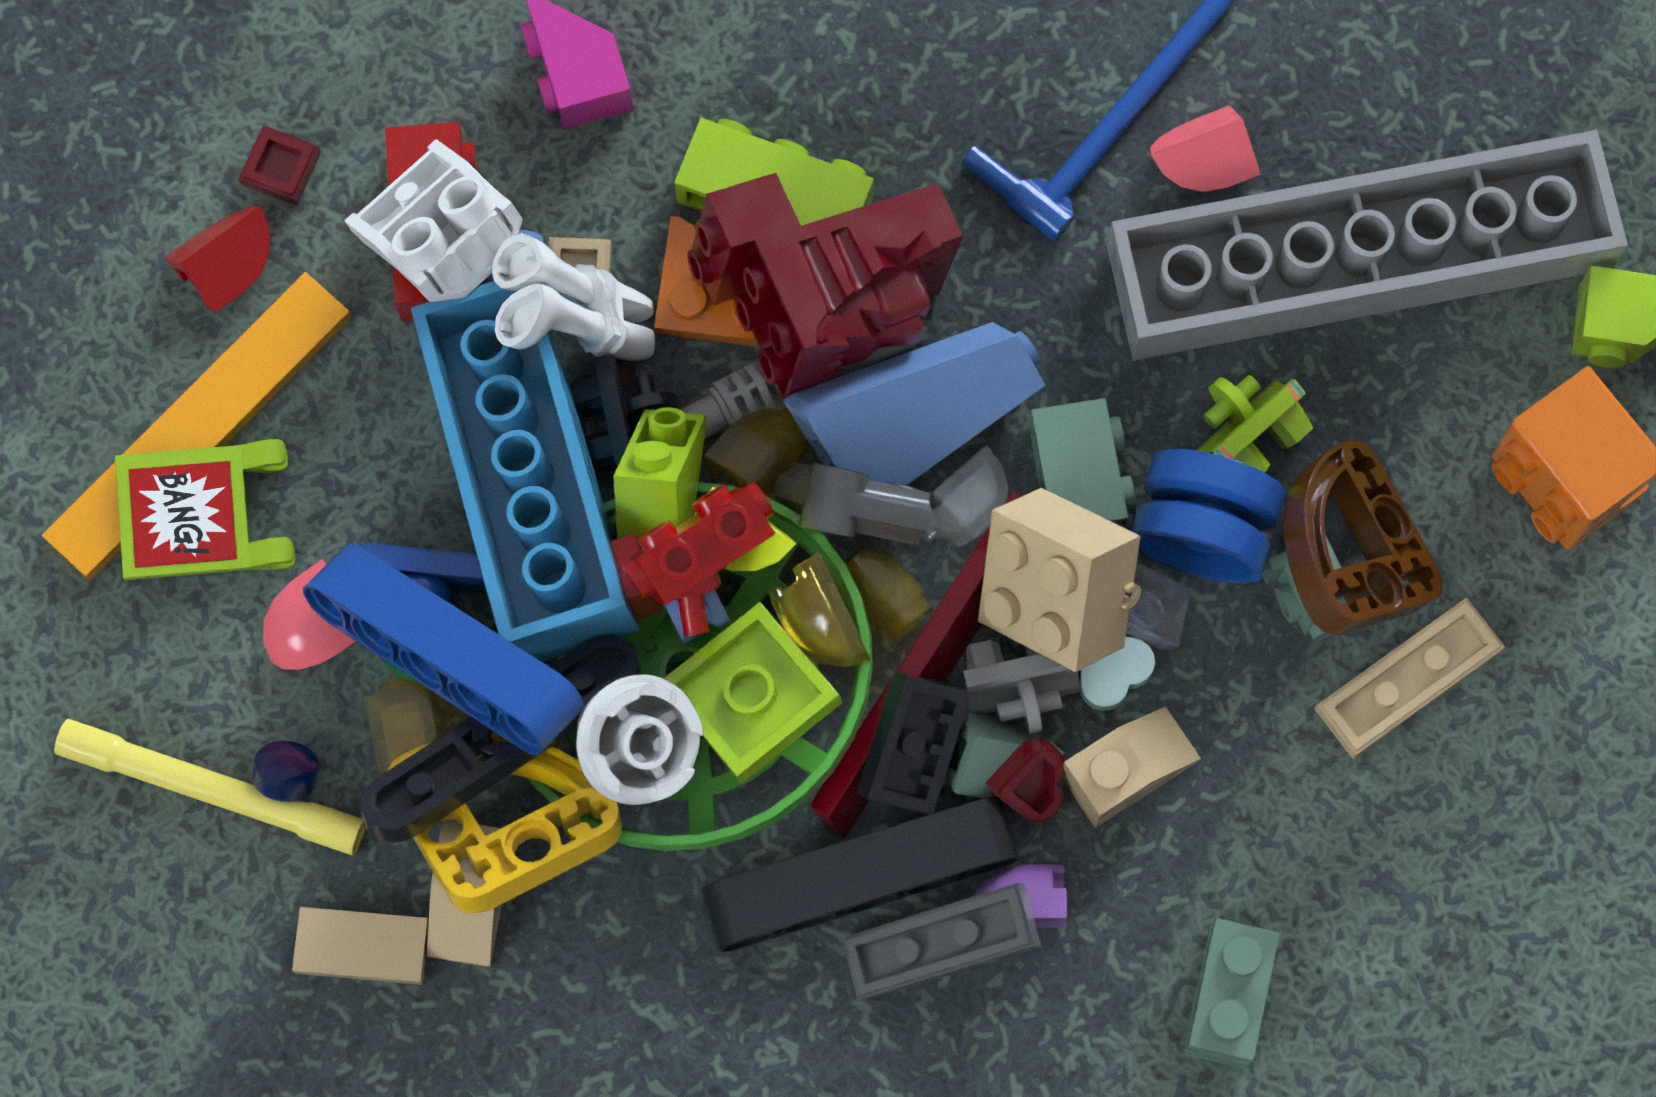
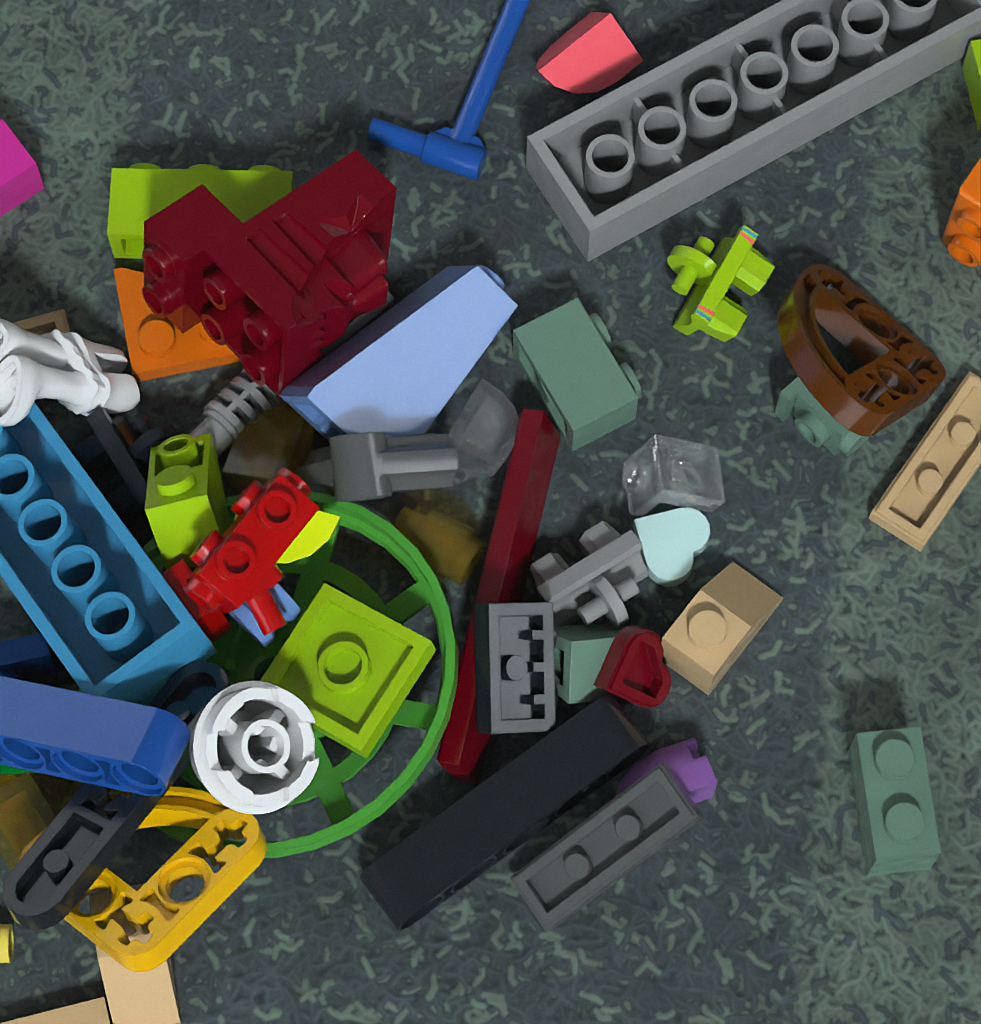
camera: 20 degrees left, 5 degrees down
(818, 617) = (385, 576): clear yellow brick -> none
(1059, 579) = (597, 470): tan brick -> none
(1208, 515) = (710, 371): blue wheel -> none

